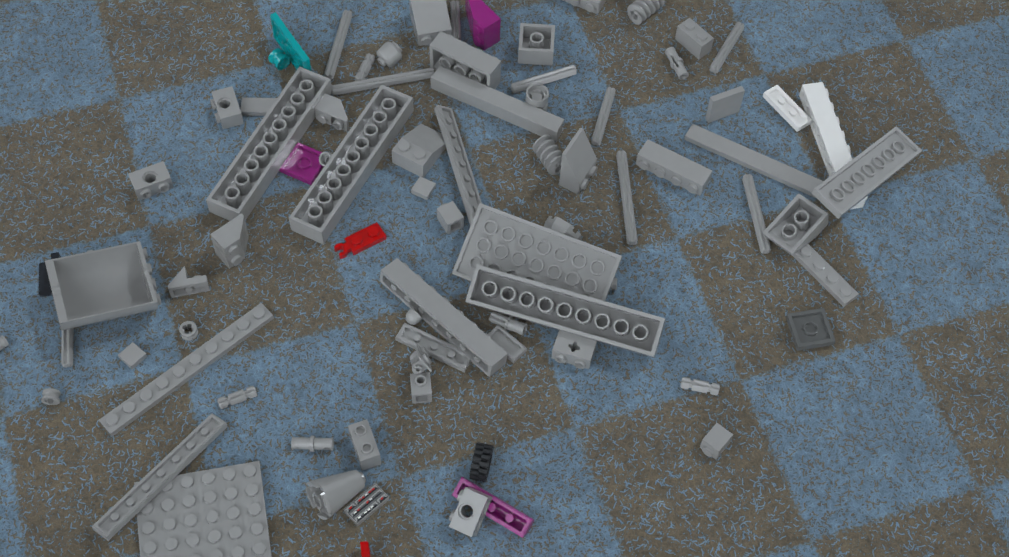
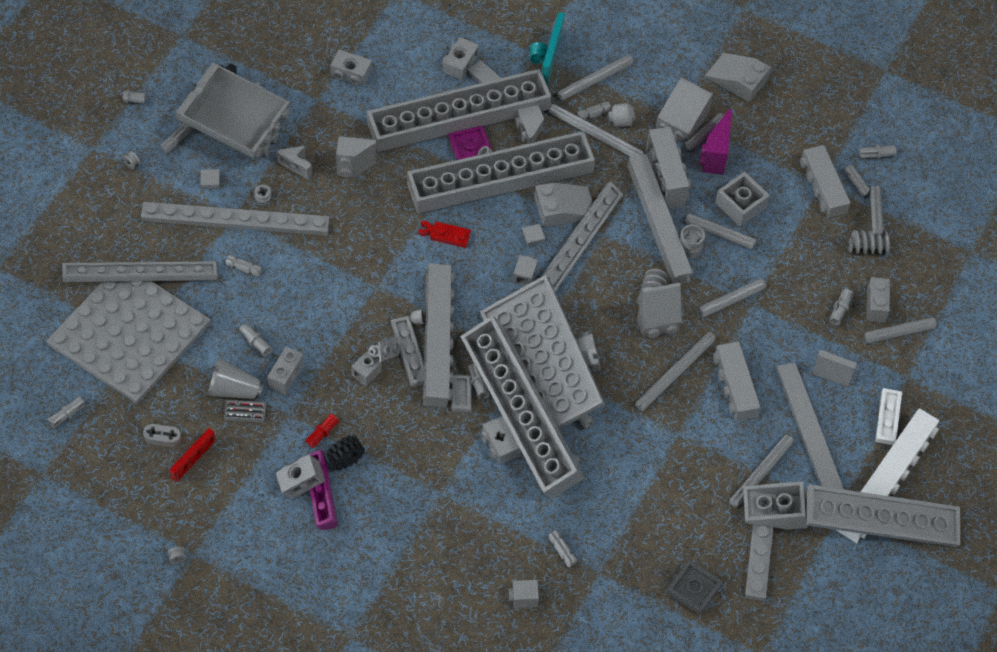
camera: 45 degrees right, 0 degrees up
(441, 463) = (322, 430): none -> red axle

